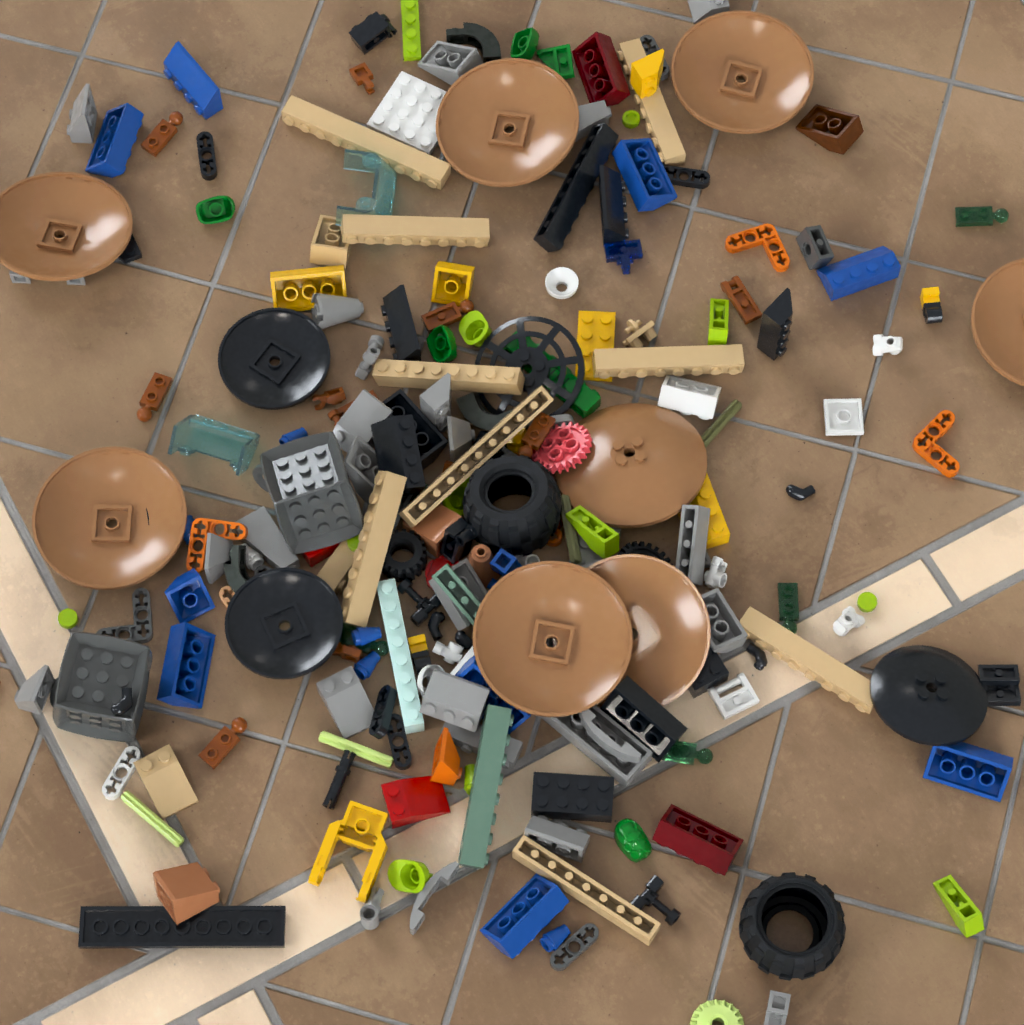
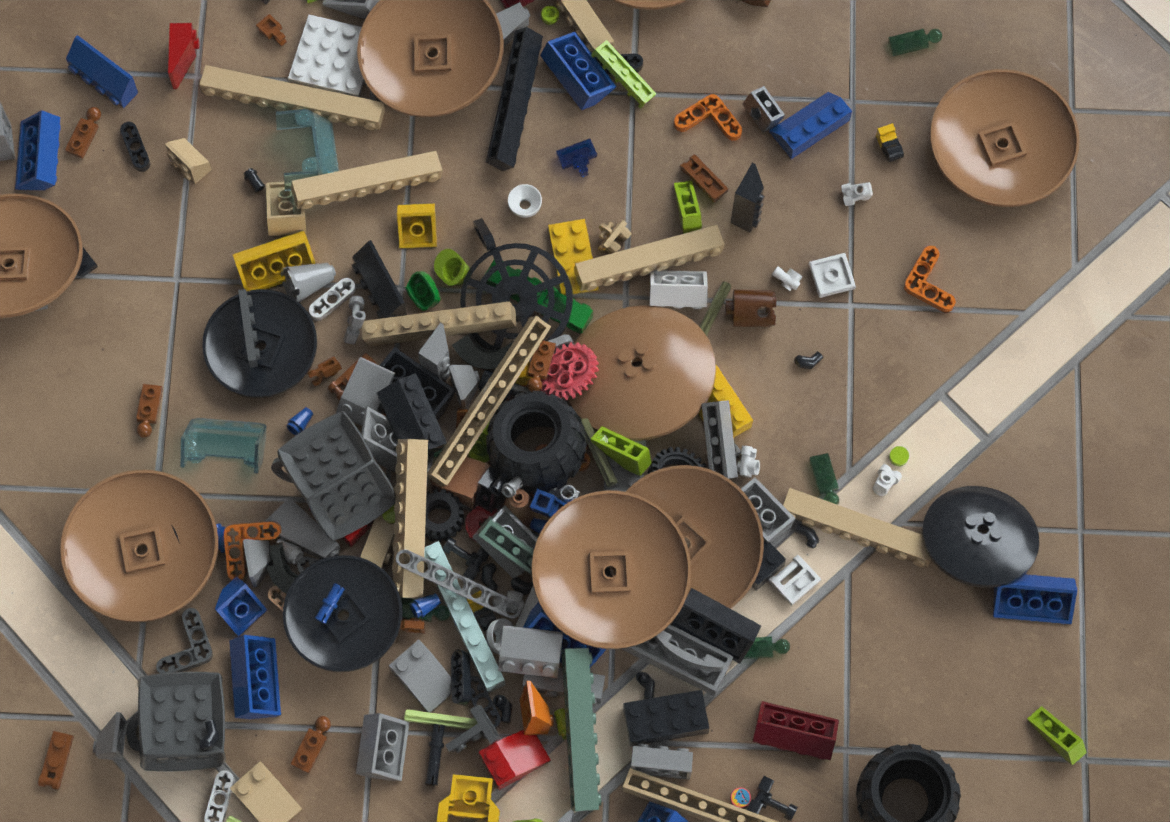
camera: 15 degrees left, 5 degrees up
(68, 618) = (123, 656): lime tile -> none
(215, 209) = (159, 201): green piece -> none
(252, 177) = (187, 159): none -> tan slope
(266, 347) = (250, 335): none -> dark grey plate
(272, 78) = (182, 51): none -> red slope
(273, 610) = (329, 603): none -> blue pin
(290, 760) = (382, 747): none -> light grey slope
(308, 206) = (254, 180): none -> black pin
(355, 327) = (332, 291): none -> white beam
(366, 665) = (432, 634): blue cone -> none
(383, 766) = (475, 733): none -> dark grey bracket
(406, 630) = (450, 577): none -> light grey beam
(419, 750) = (505, 706): none -> black arm
(446, 314) = (418, 259): dark orange plate -> none
(475, 541) = (509, 489): none -> light grey pin
(514, 304) = (484, 234): none -> black beam
(563, 760) = (647, 683): none -> black arm
(611, 206) = (554, 111): black slope -> none
(627, 890) = (740, 797): none -> tile
(632, 840) = (733, 746): green piece -> none
(687, 186) = (624, 73): none -> lime hinge
(749, 426) = (746, 305): none -> reddish brown cylinder
(800, 411) = (790, 279): none -> white plate
(1001, 684) = (1045, 507): black slope -> none

